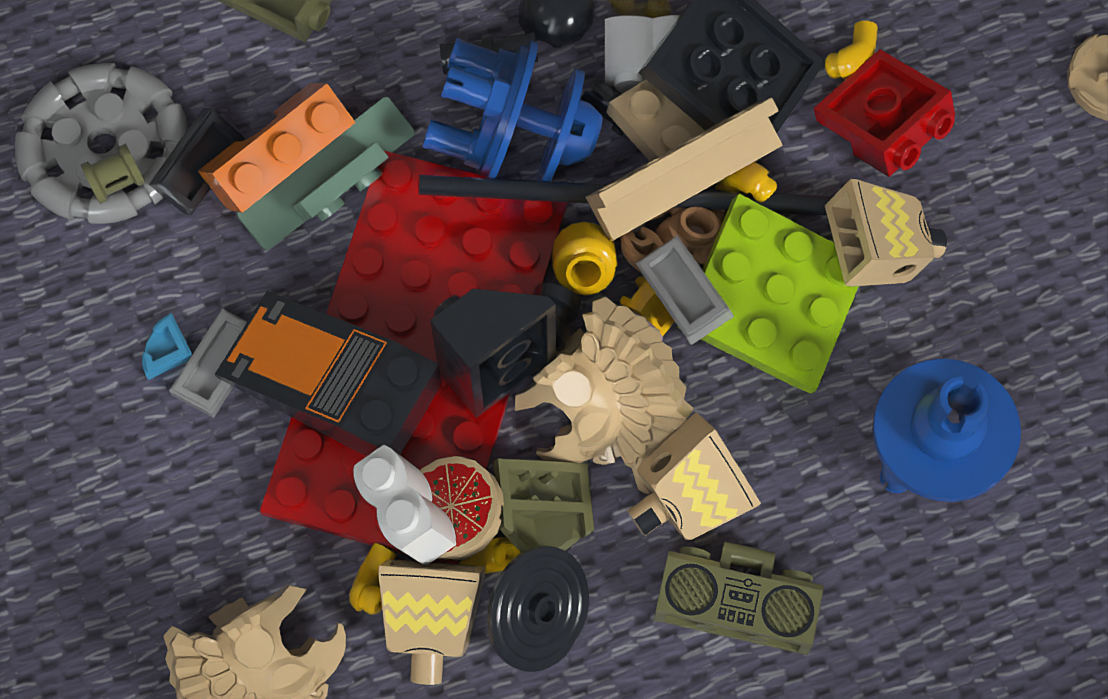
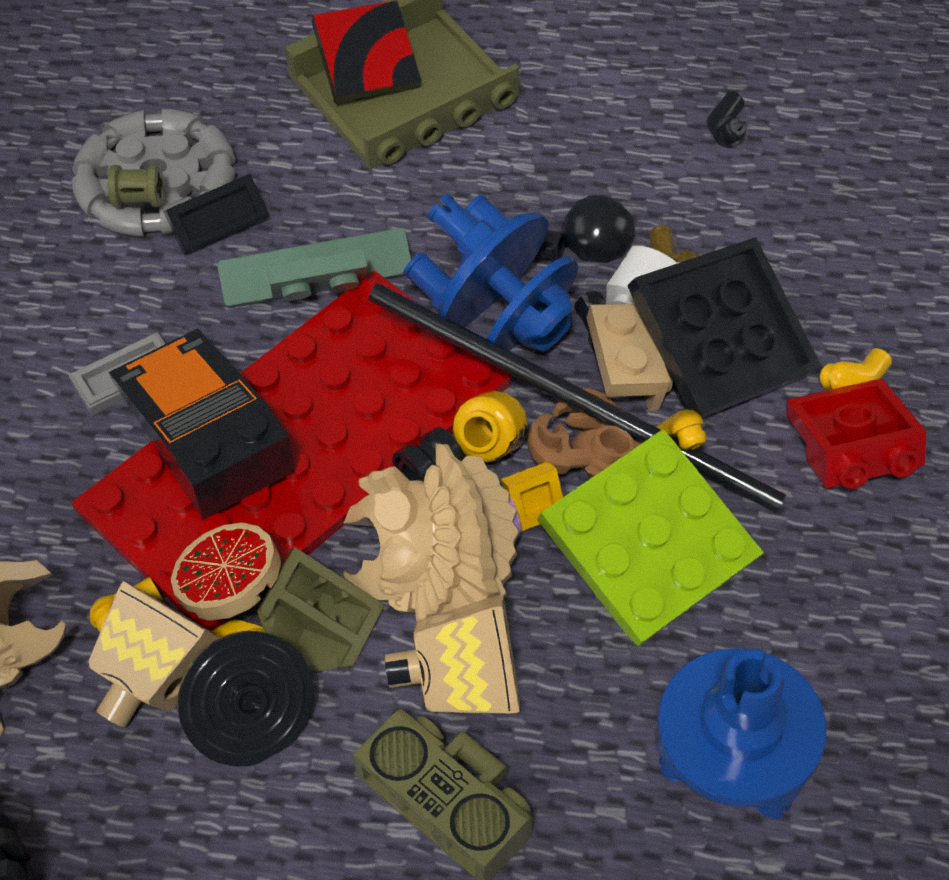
camera: 30 degrees right, 15 degrees down
(164, 348) = (90, 343): dark azure tile -> none
(263, 161) = (284, 223): orange arch -> none
(404, 505) = (178, 540): white brick -> none
(492, 343) = (340, 431): black slope -> none
(684, 290) = (557, 483): light grey tile -> none
(685, 170) = (623, 380): tan fence -> none
(881, 234) = (786, 530): tan torso -> none

